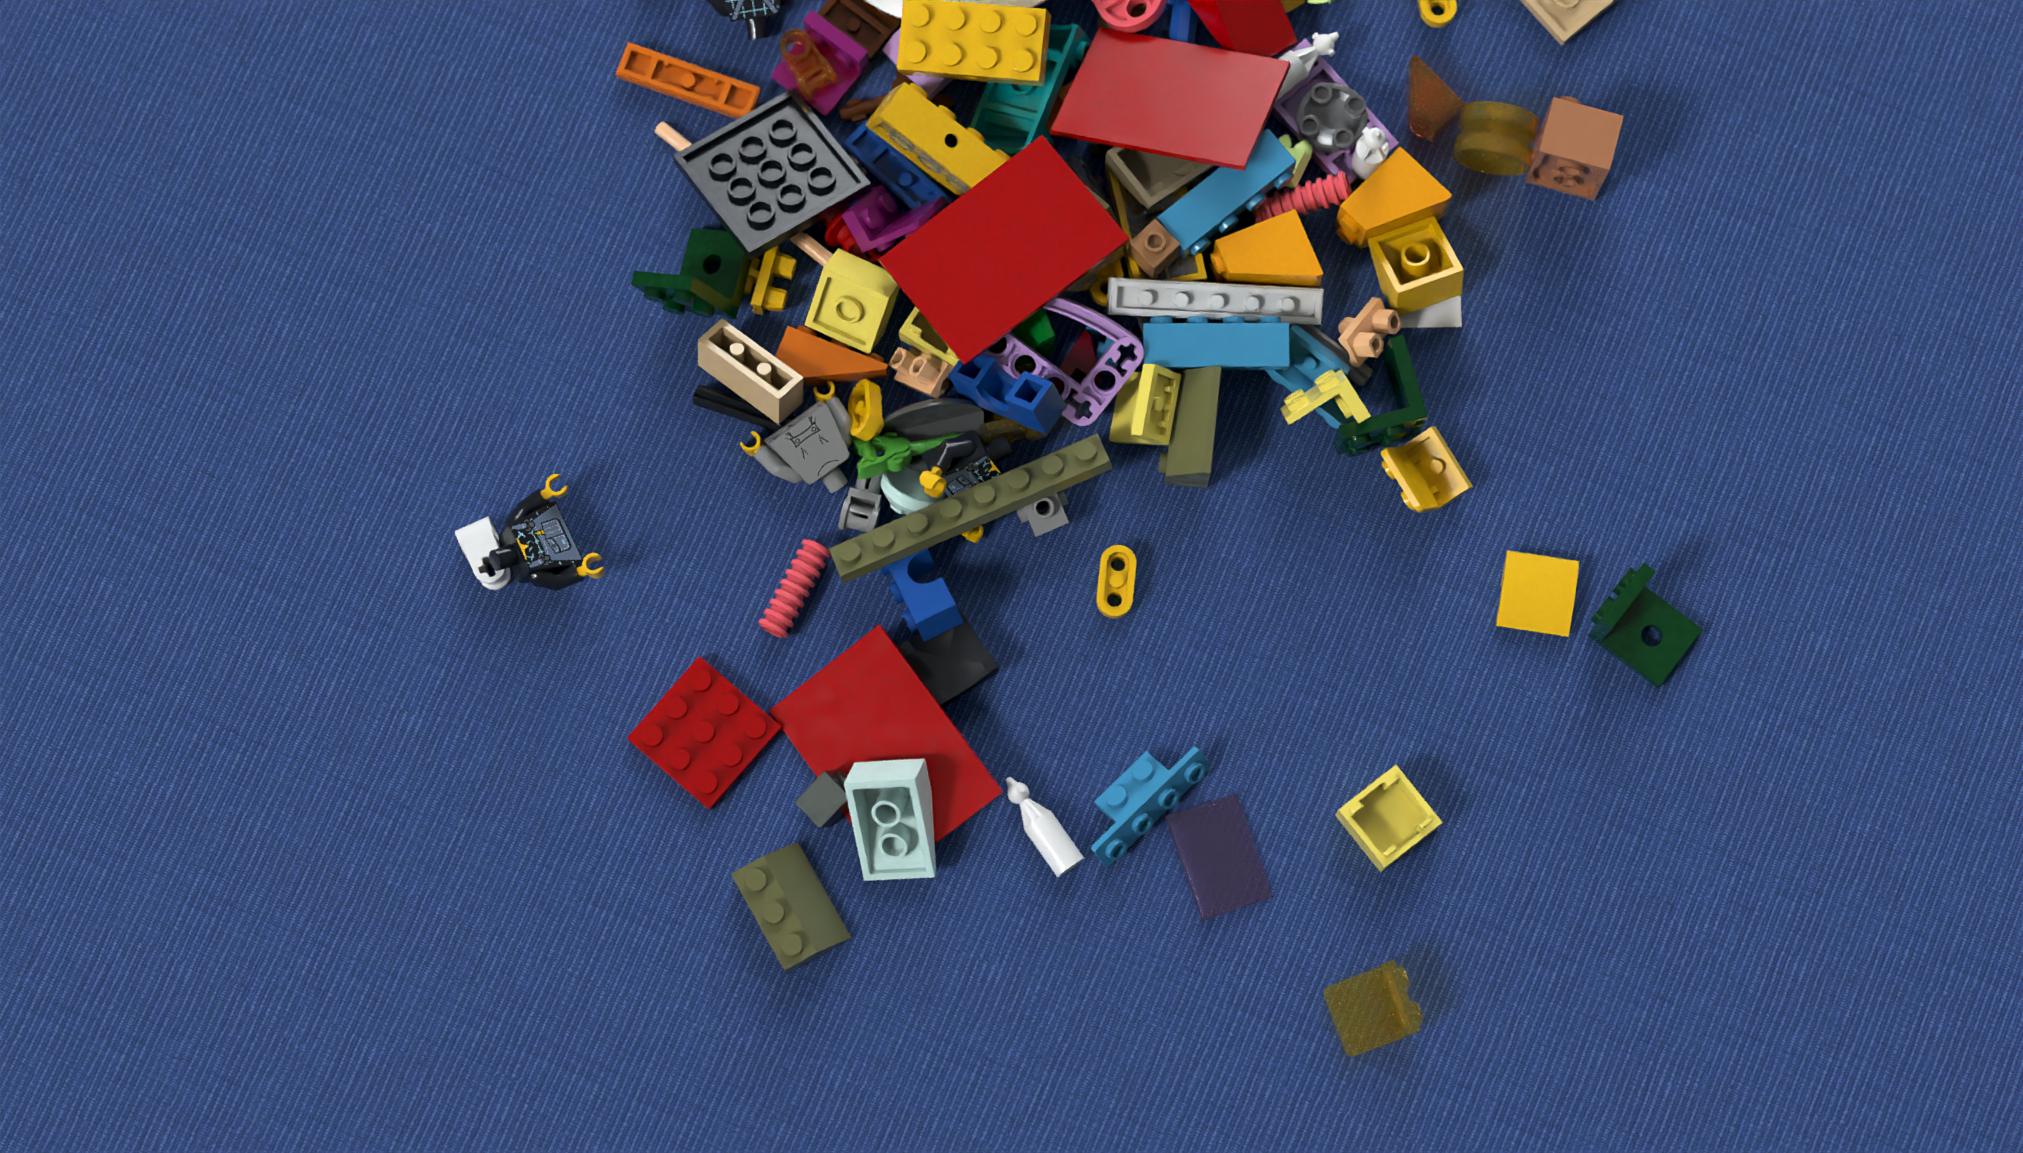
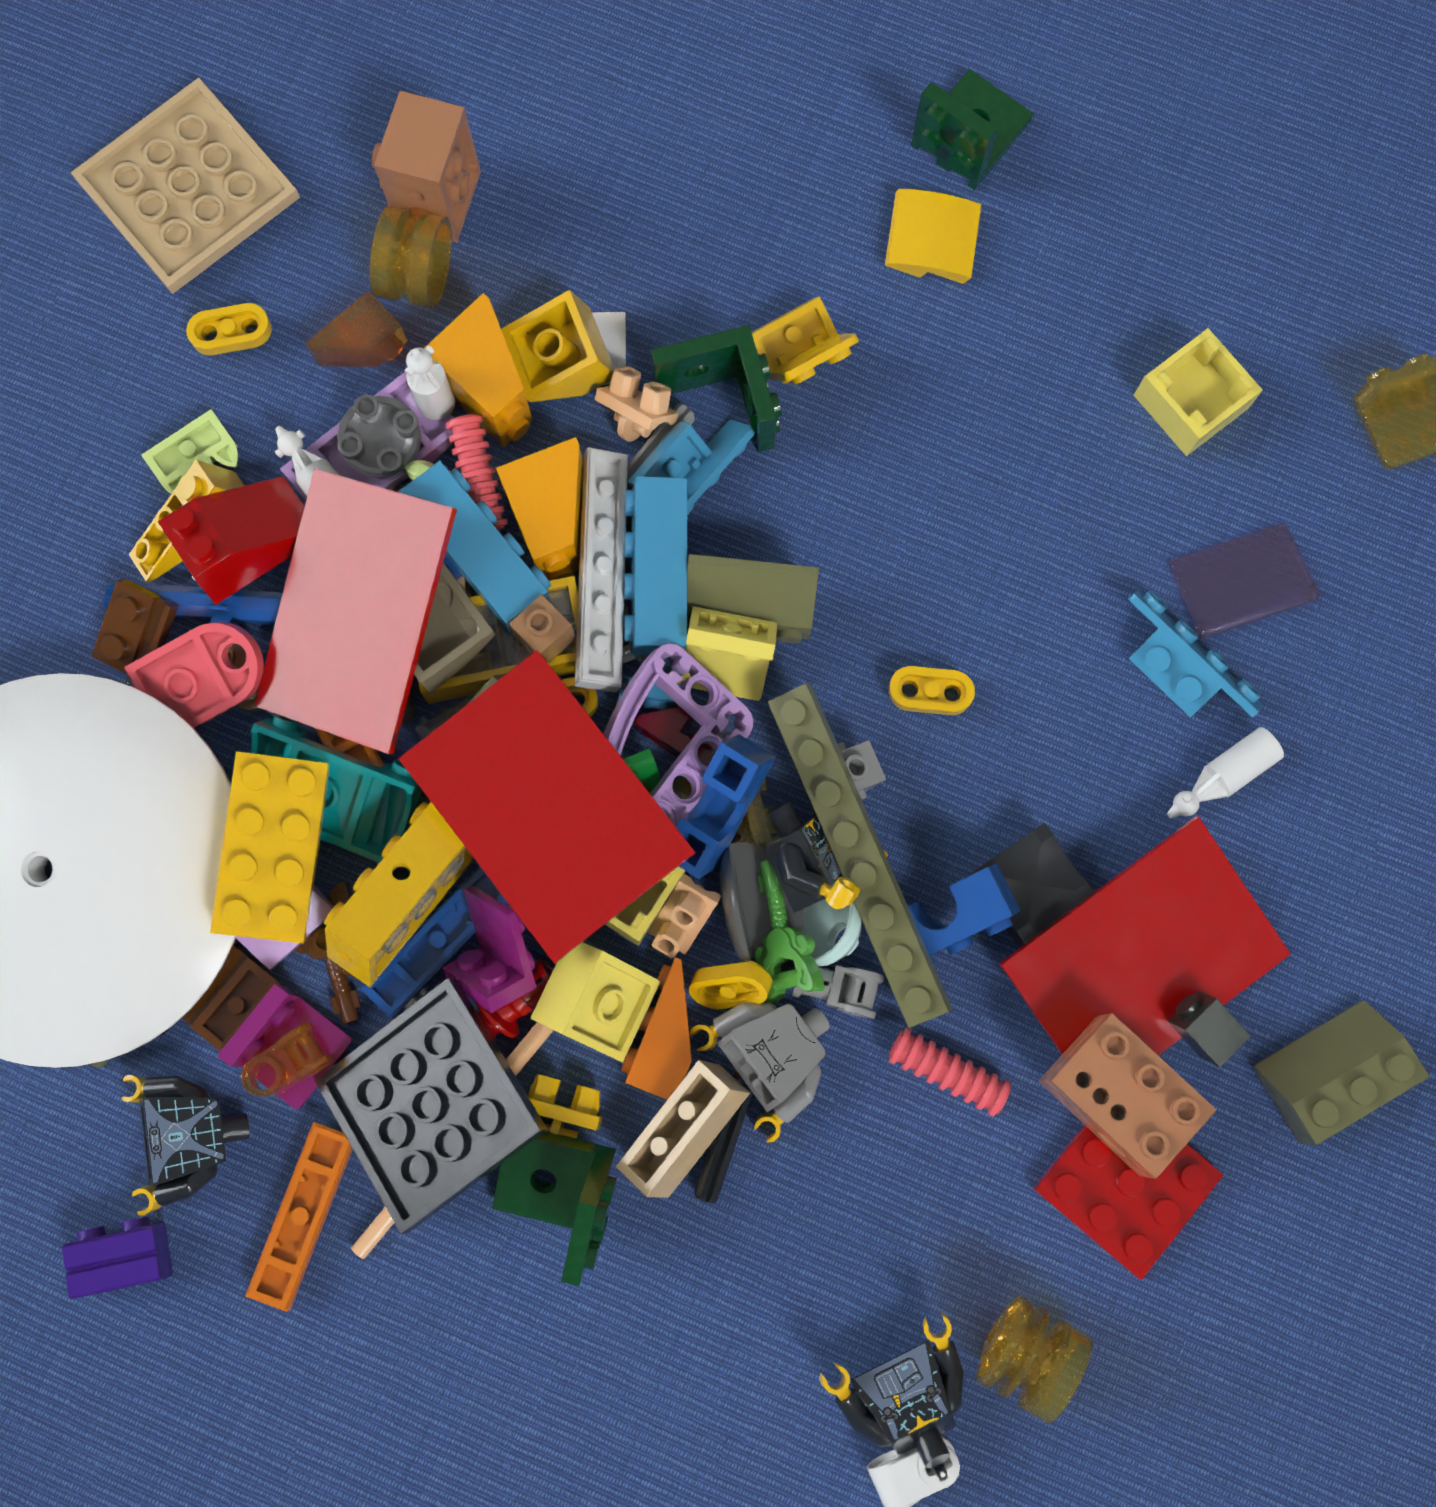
camera: 90 degrees left, 0 degrees up
(568, 641) = (1043, 1363): none -> clear yellow wheel
(772, 717) = (1127, 1096): none -> nougat piece
(892, 818) = (1231, 948): light aqua slope -> none
(1327, 386) = (722, 443): light yellow bracket -> none

